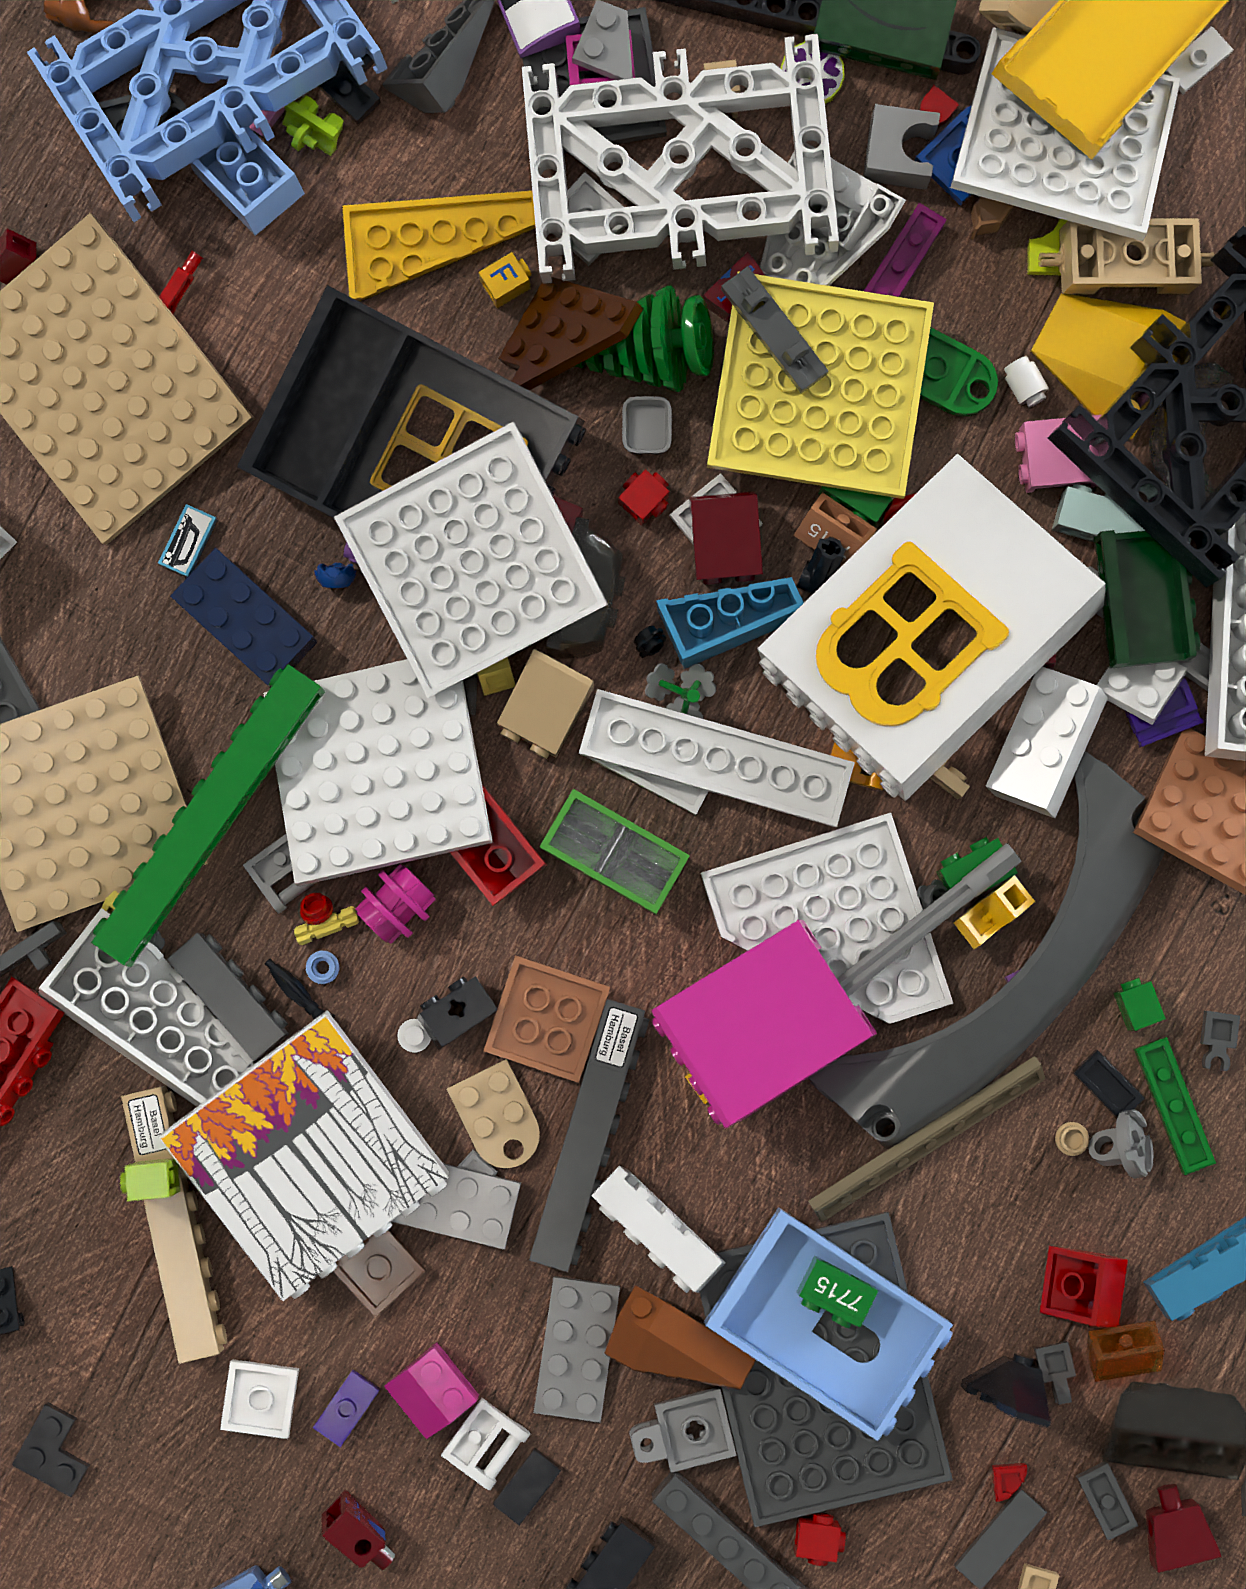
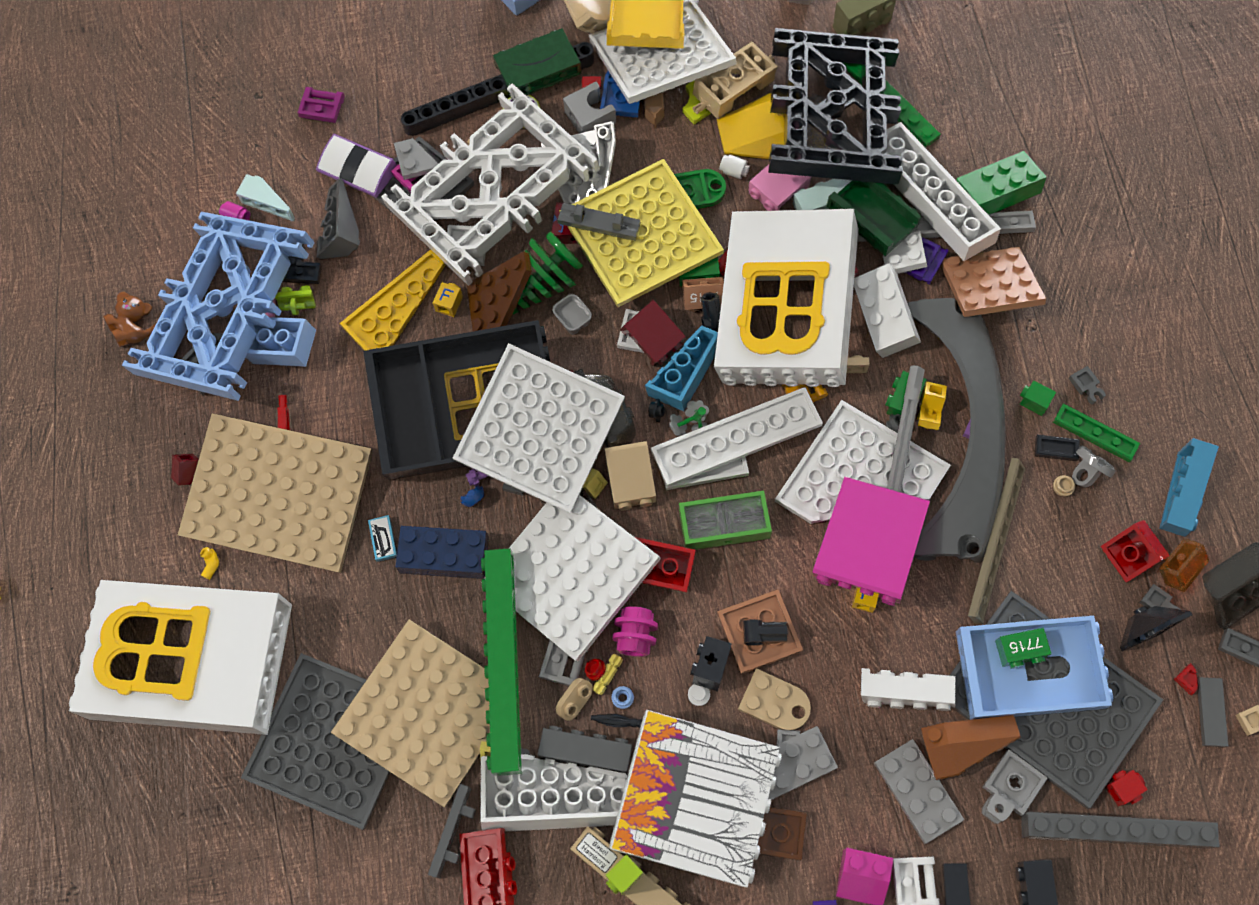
camera: 30 degrees left, 15 degrees down
(263, 924) = (574, 698): none -> tan plate
(541, 1023) = (758, 632): none -> black piece
(587, 1136) = (831, 675): dark grey brick -> none
(644, 496) = (597, 346): red brick -> none
(906, 252) = (630, 150): magenta plate -> none

